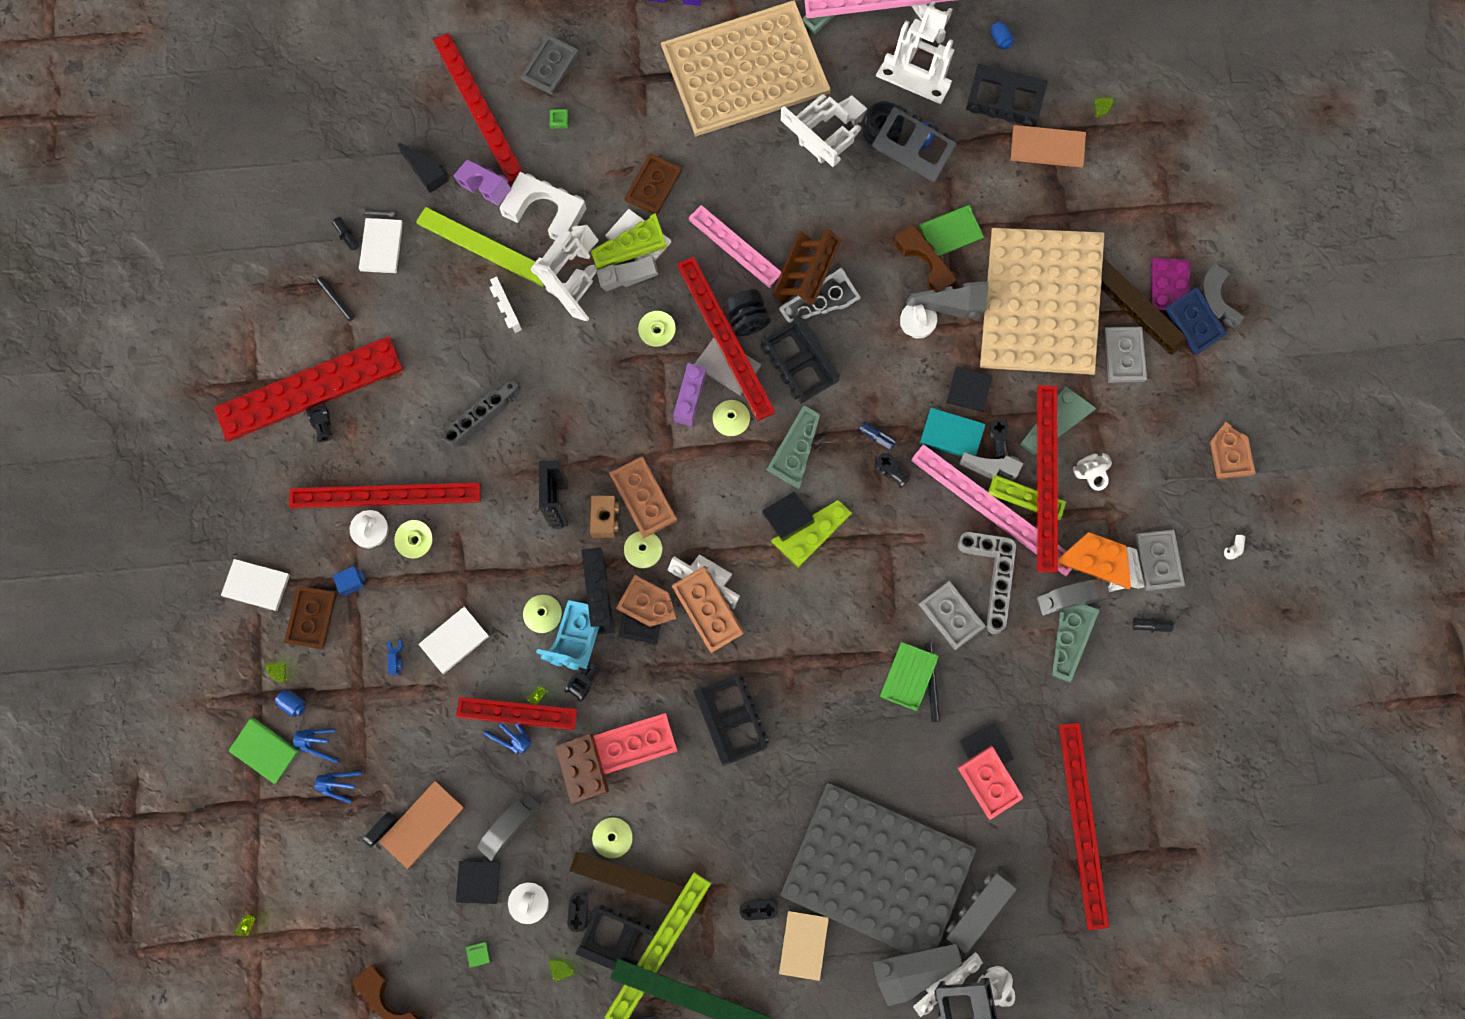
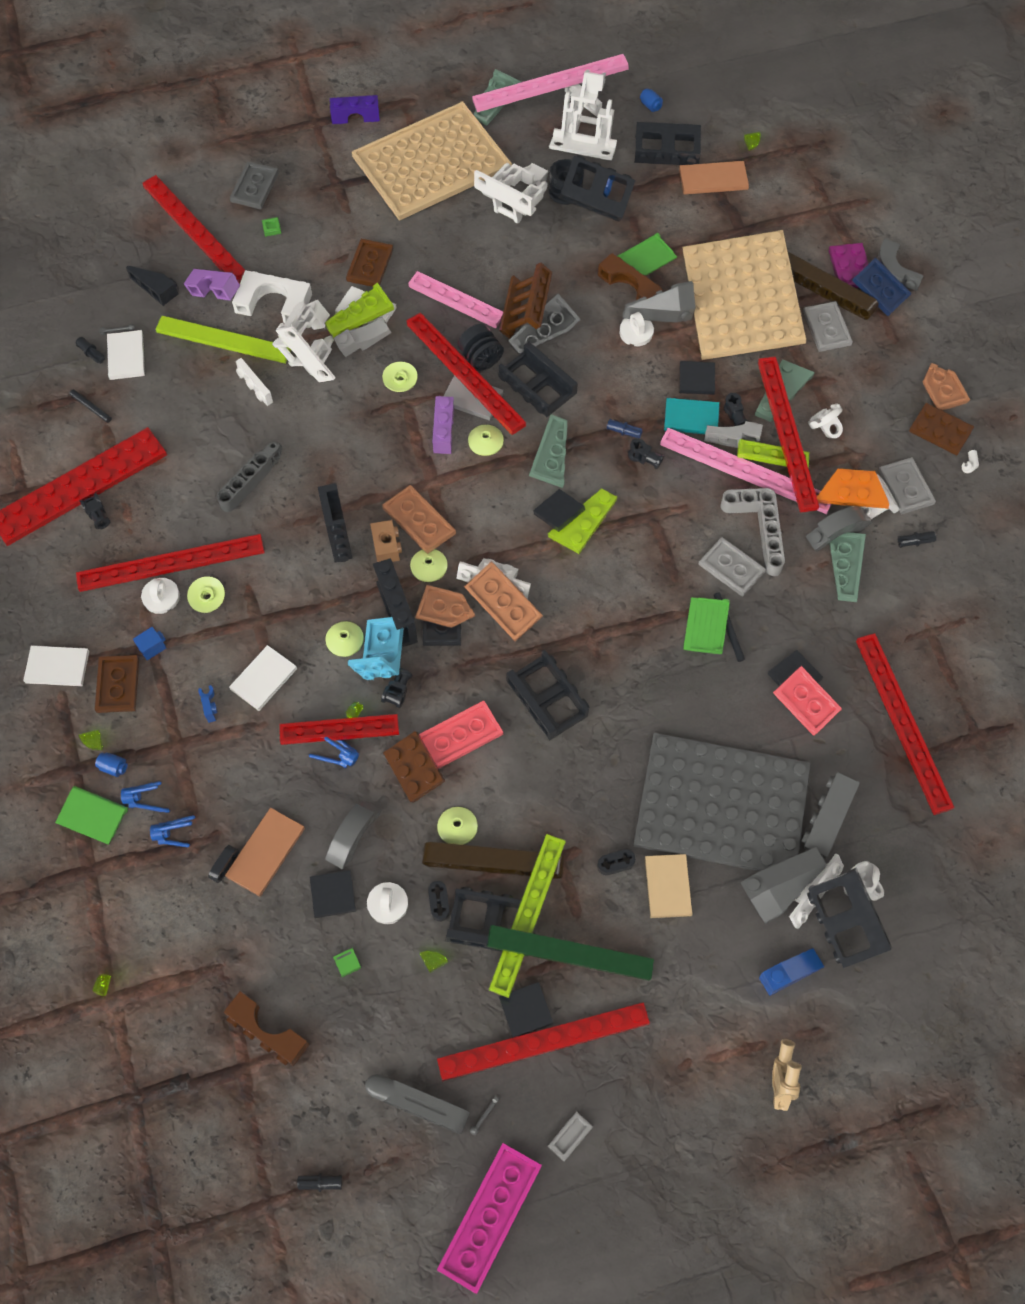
camera: 15 degrees left, 10 degrees down
(1215, 501) = (941, 429): none -> reddish brown plate

